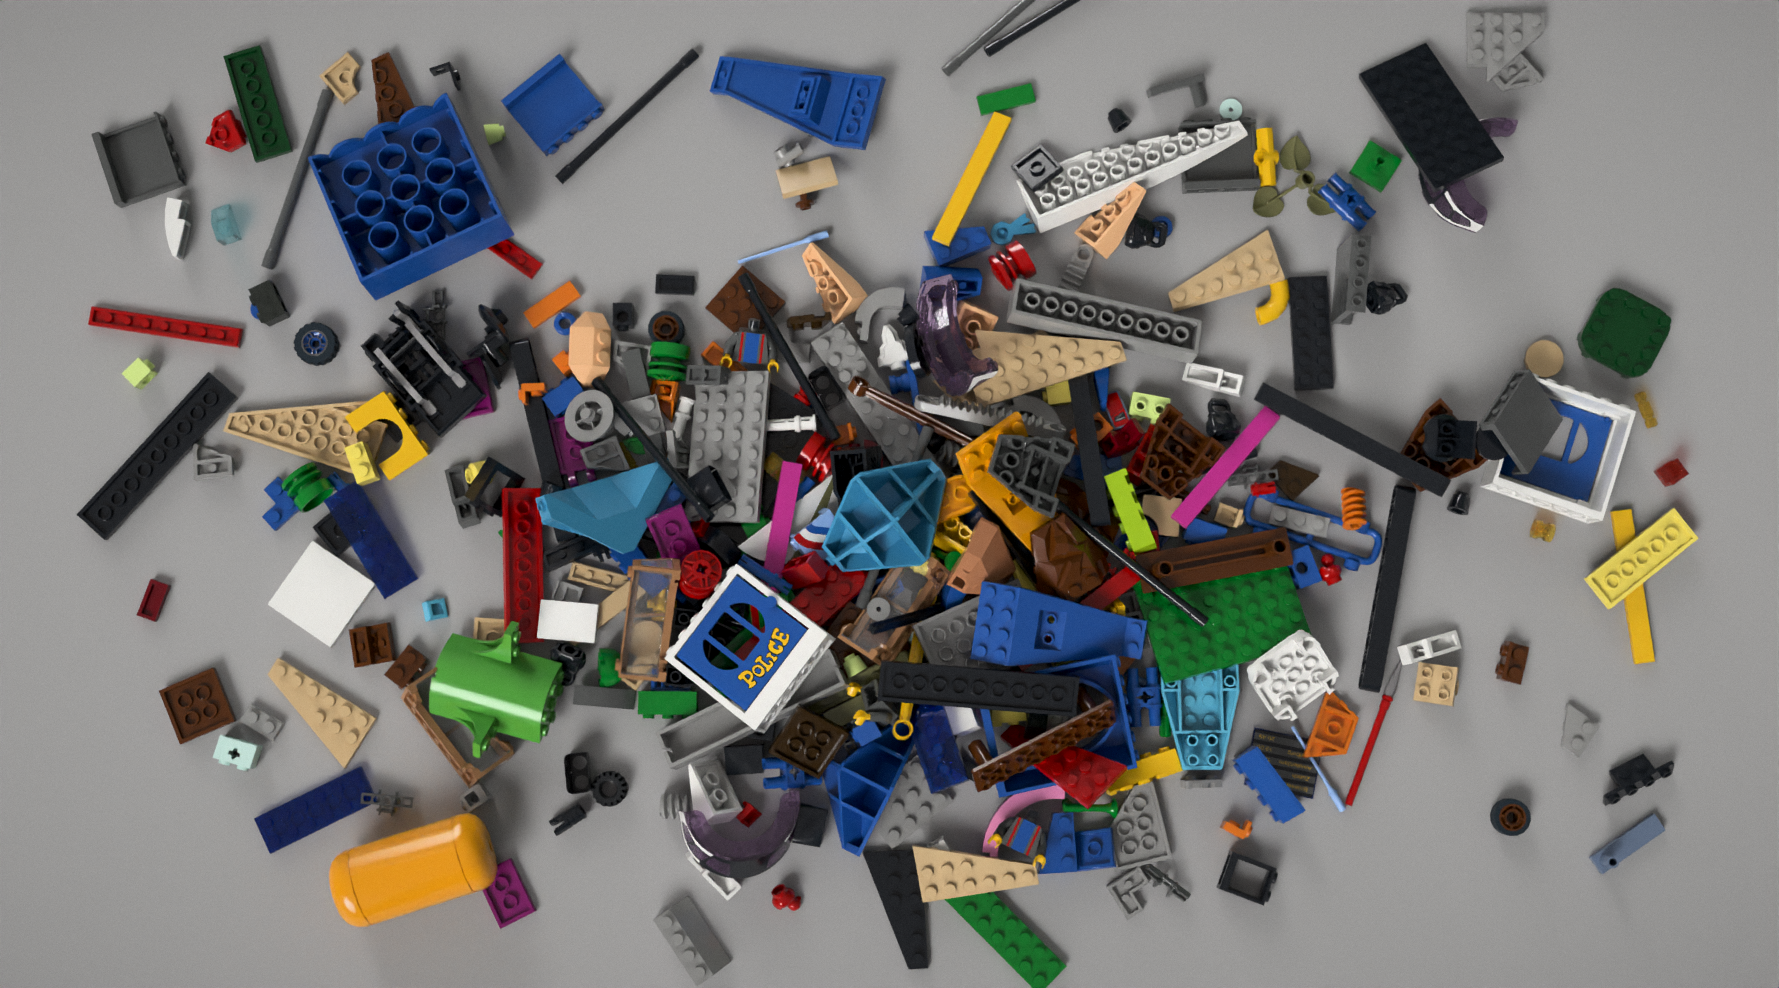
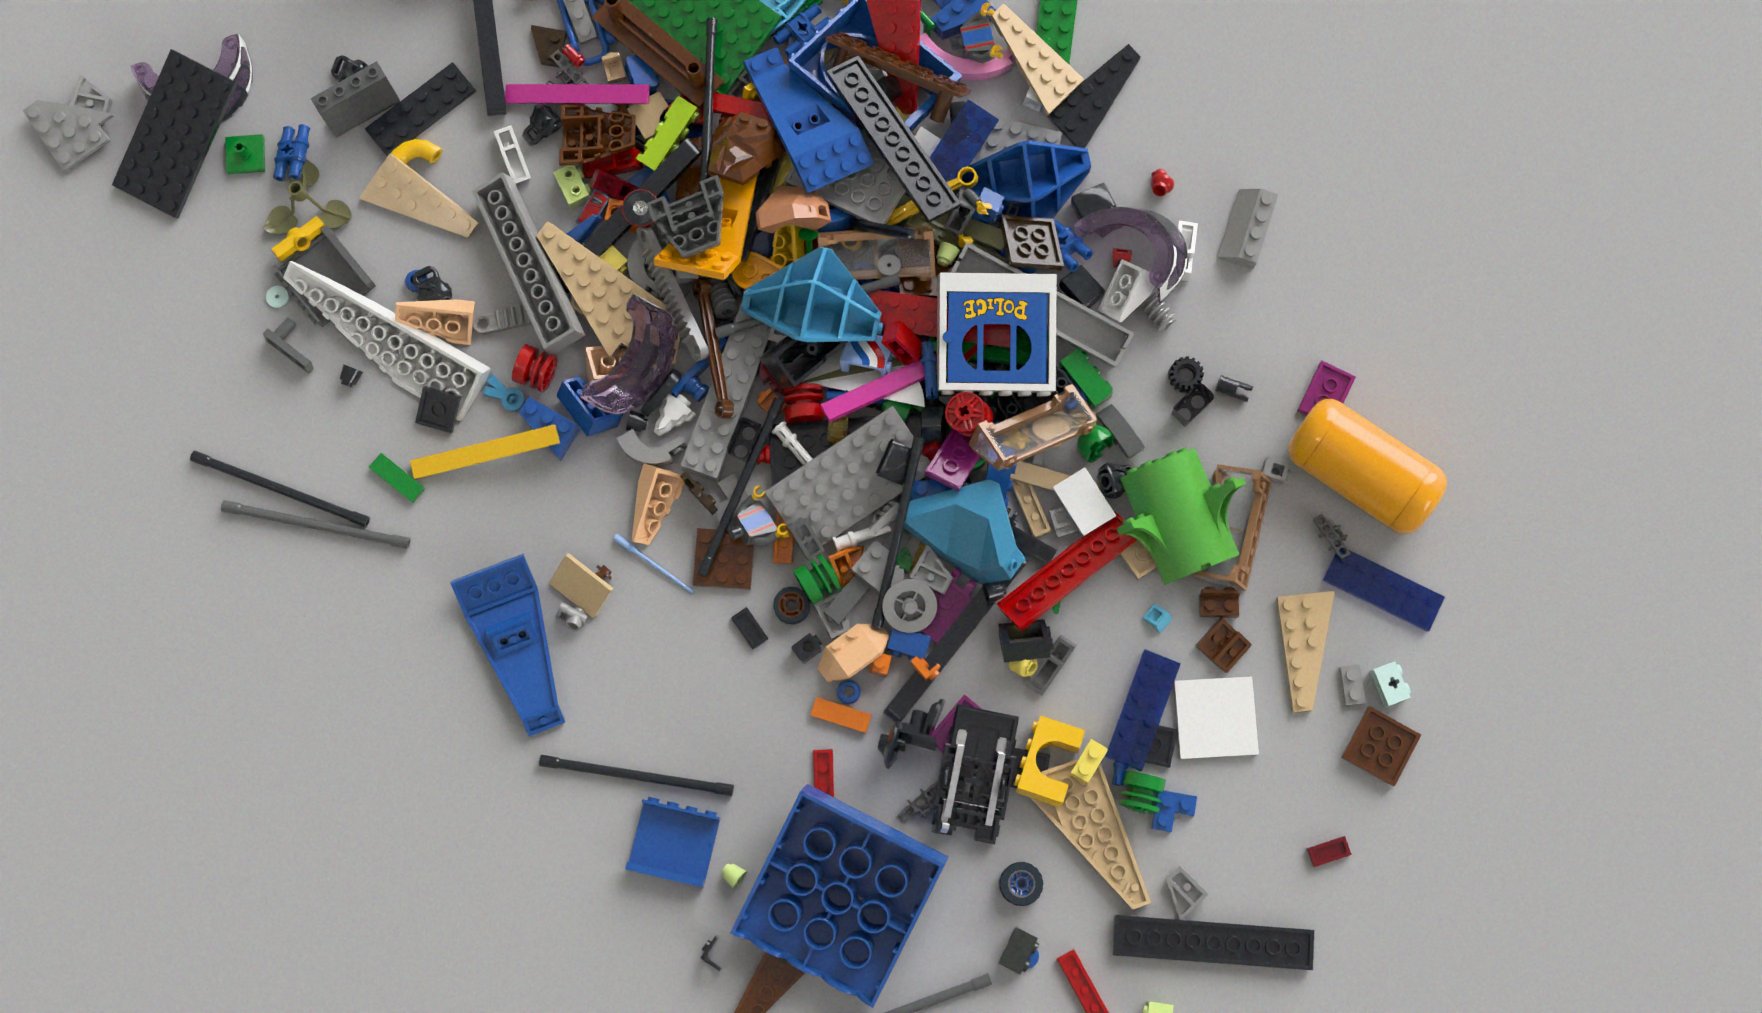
camera: 125 degrees left, 5 degrees down
(1084, 438) = (636, 209): none -> black tile

